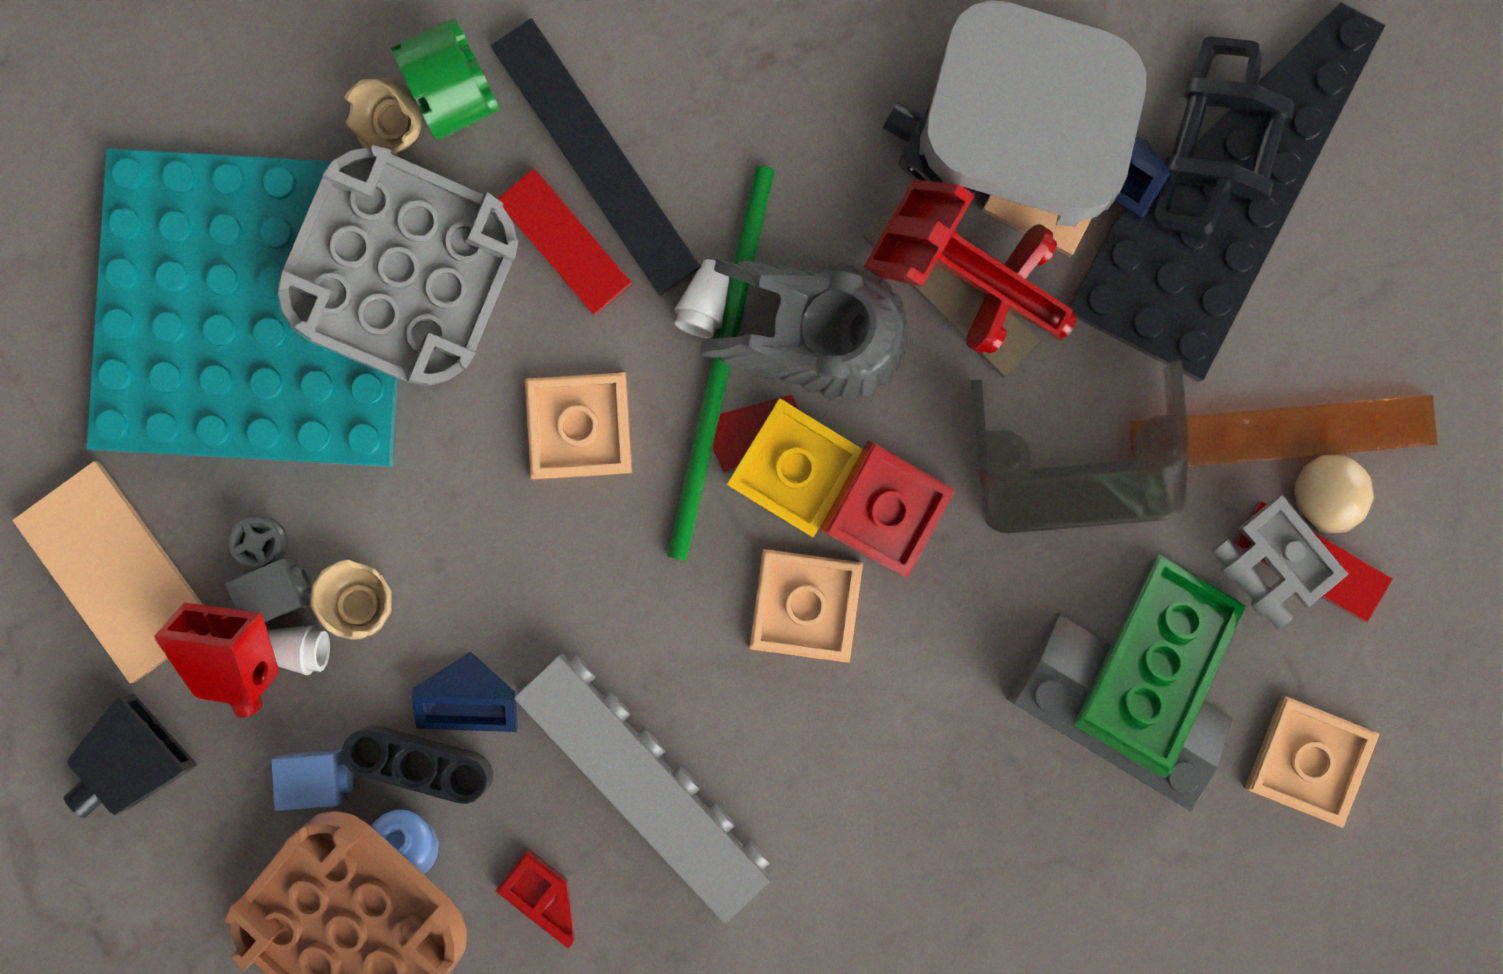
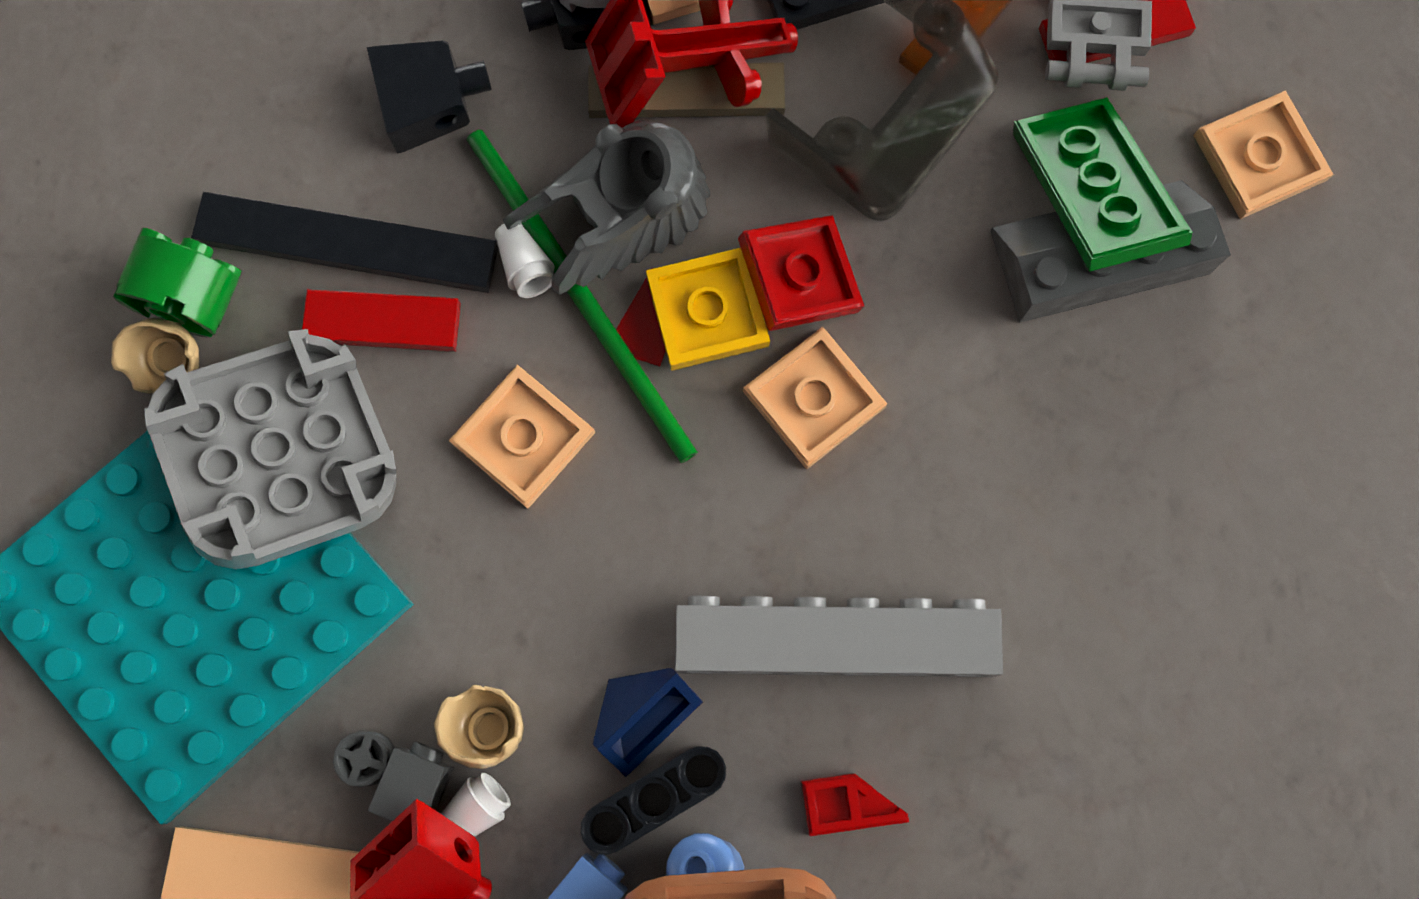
camera: 45 degrees left, 10 degrees down
(760, 99) = (423, 90): none -> black torso

